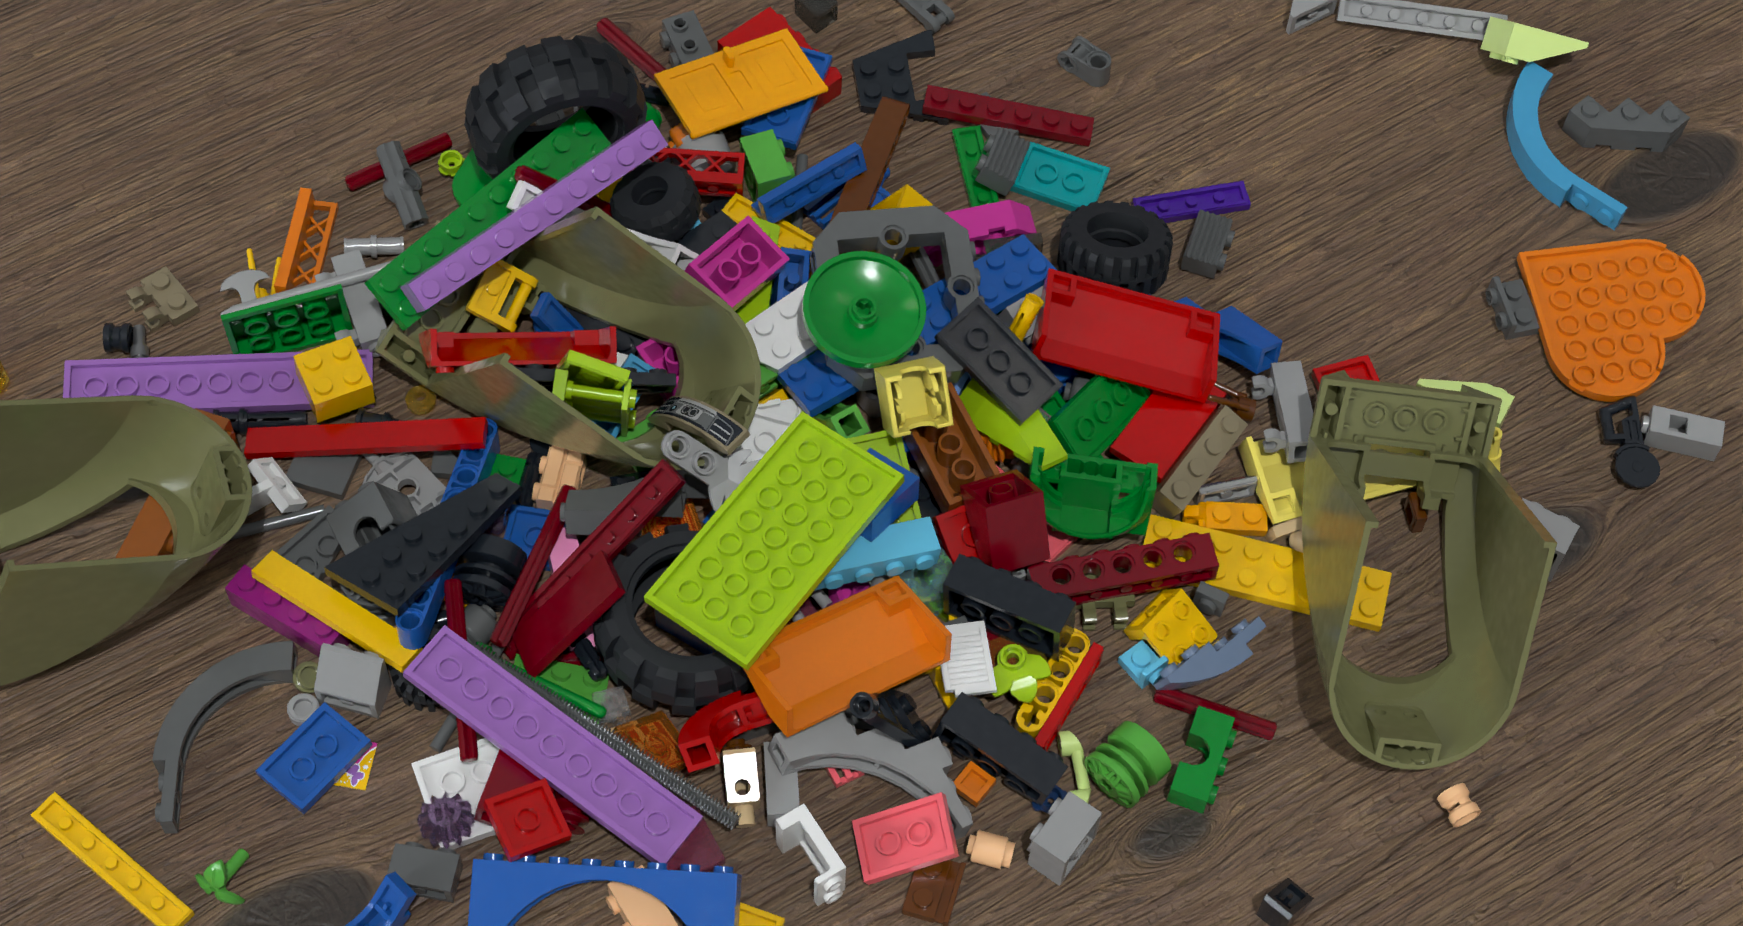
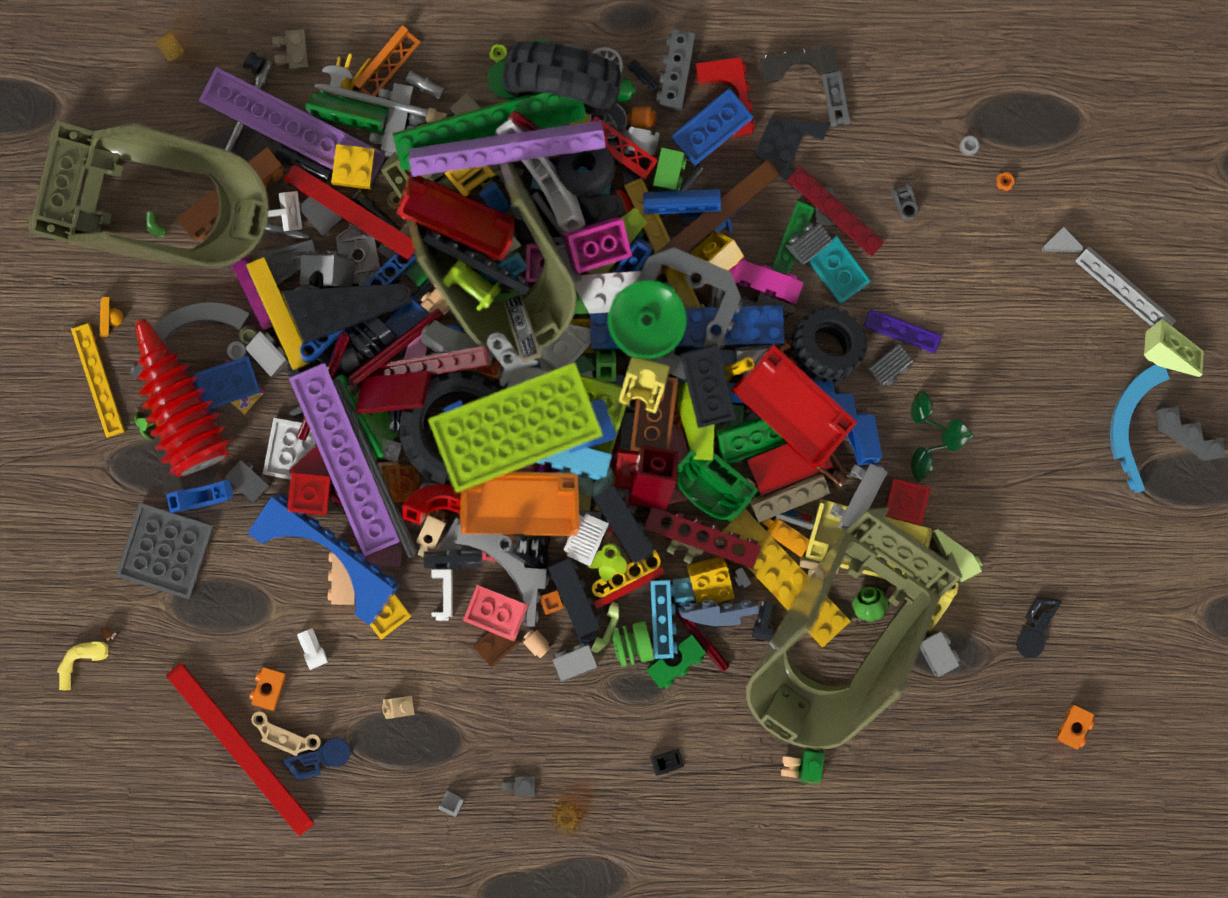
camera: 30 degrees right, 25 degrees up
(80, 766) = (111, 317): none -> light orange tile
(261, 820) = (177, 408): none -> red cone
(402, 185) = (460, 55): dark grey piece -> none
(413, 155) = (470, 33): dark red axle -> none
(446, 820) = (263, 464): clear purple gear -> none
(592, 371) = (473, 276): lime tile -> none
(629, 47) = (648, 39): dark red axle -> none
(740, 83) = (686, 109): light orange door -> none
(795, 791) = (452, 559): none -> black piece
(1137, 702) = (662, 619): none -> medium azure brick
(1284, 645) = (764, 625): none -> black piece
(1357, 252) = (954, 437): none -> dark green plant
(1402, 531) = (870, 604): none -> bright green plant
(1488, 782) = (812, 766): none -> green torso
(1512, 308) = (1036, 507): dark grey bracket -> none
(1611, 311) = (1089, 541): orange plate -> none
(1682, 432) = (1070, 639): light grey brick -> none

